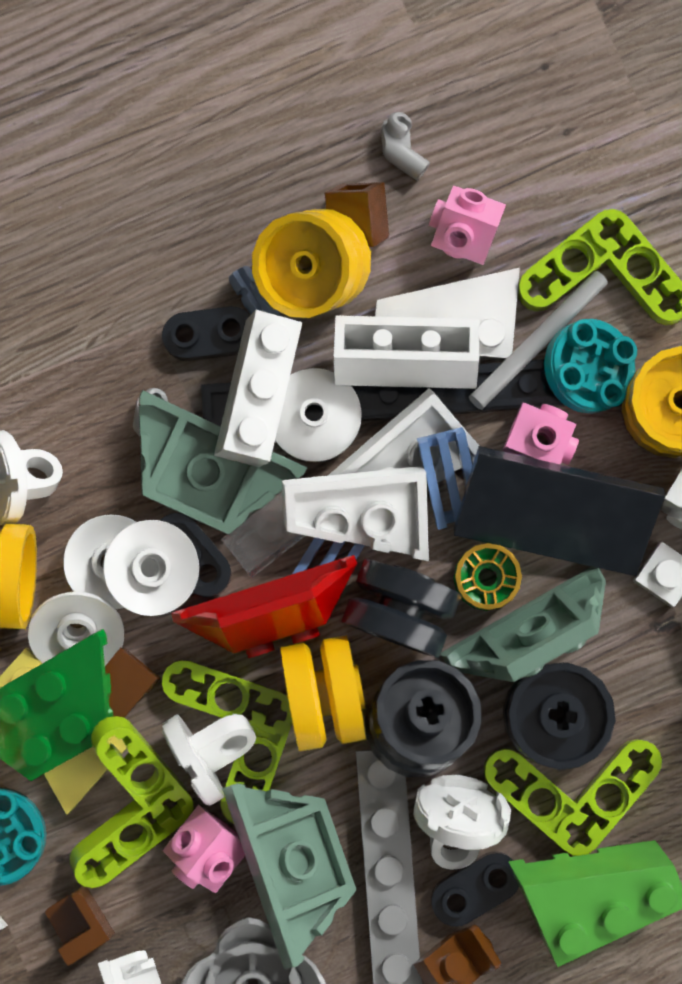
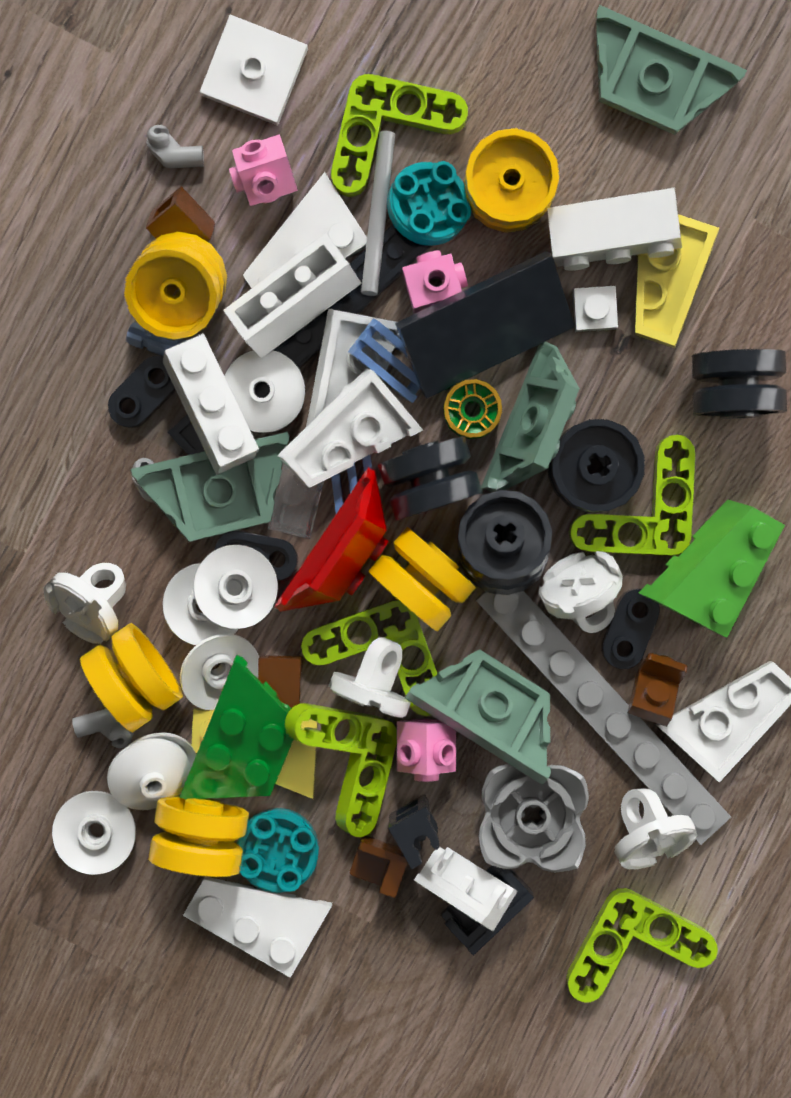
camera: 30 degrees left, 5 degrees up
(135, 911) = (413, 824): none -> black hinge
(526, 133) = (253, 70): none -> white plate

